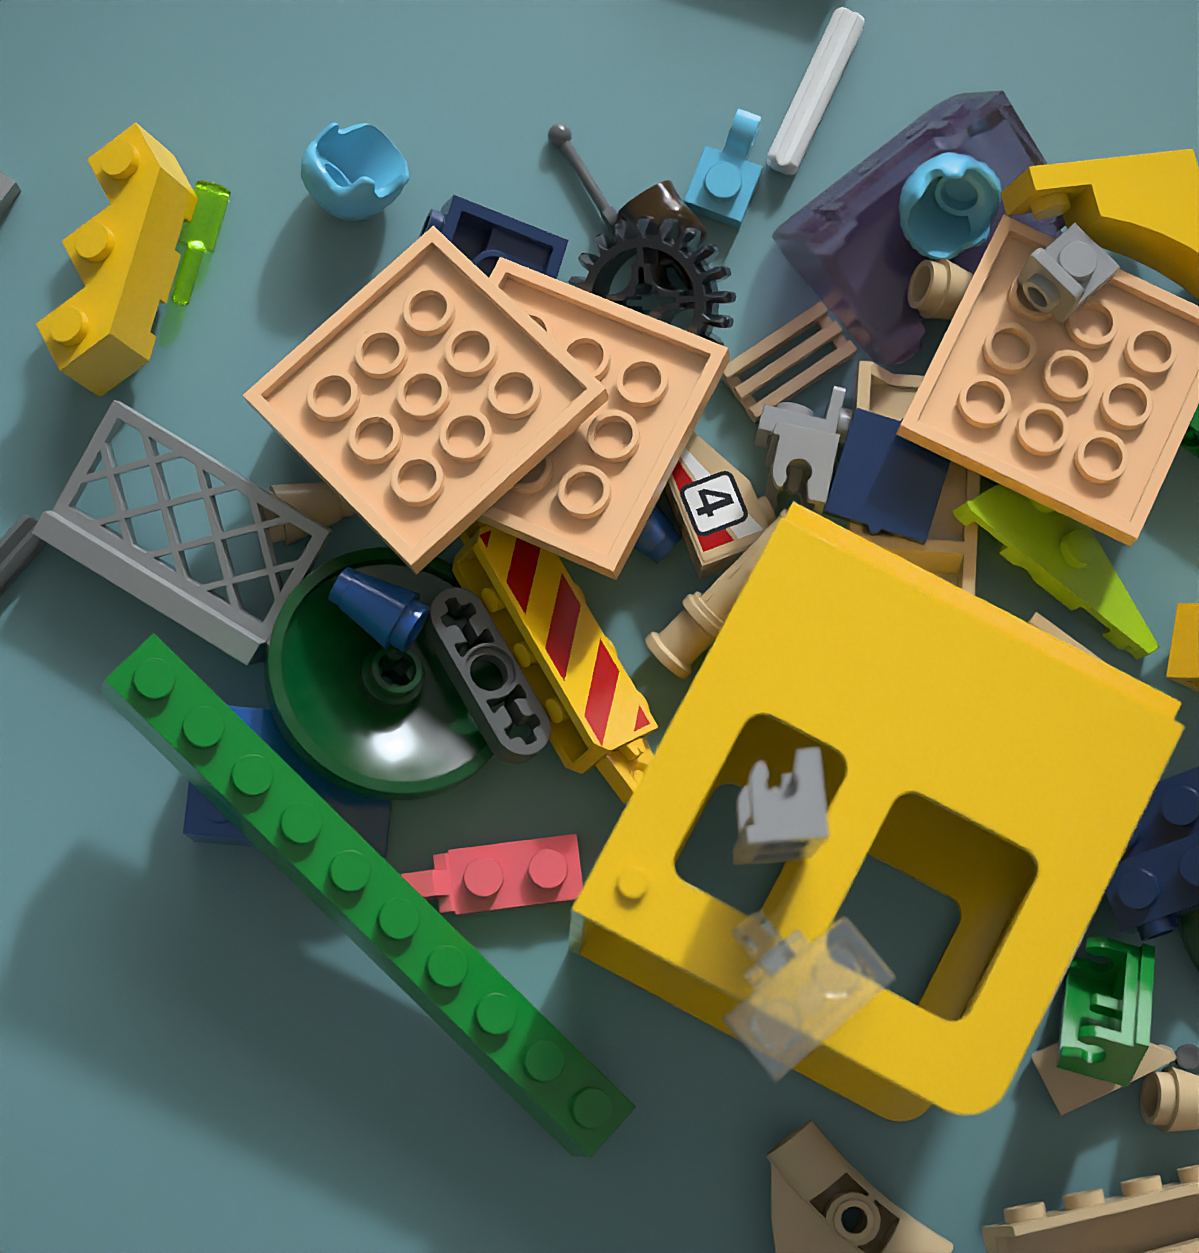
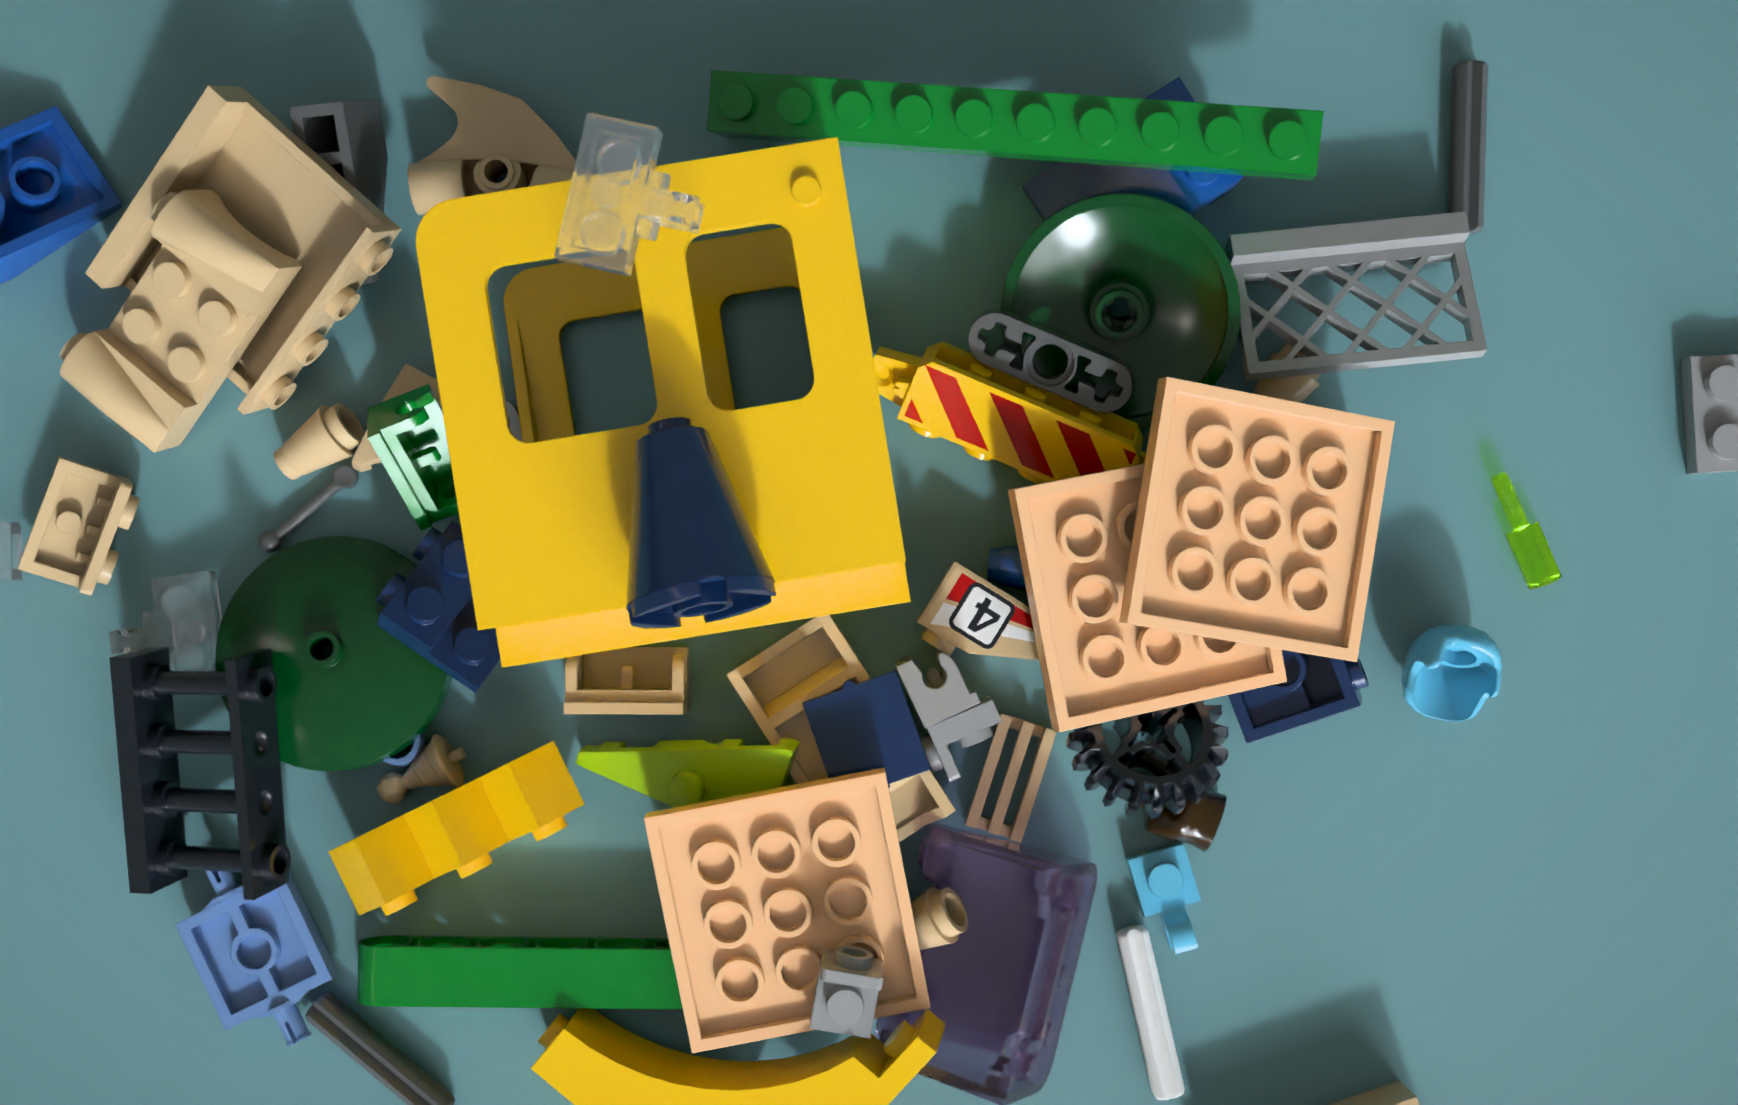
camera: 145 degrees right, 10 degrees up
(124, 262) = (1568, 466): yellow brick -> none
(380, 608) = (1165, 343): blue cone -> none
(502, 876) = (929, 232): coral hinge -> none
(560, 137) = (1316, 826): dark grey hinge -> none
(705, 613) = (922, 532): tan pin -> none
(784, 820) = (722, 292): light grey hinge -> none
(949, 205) = (979, 988): medium azure hair -> none
(950, 659) = (689, 534): none -> dark blue cone

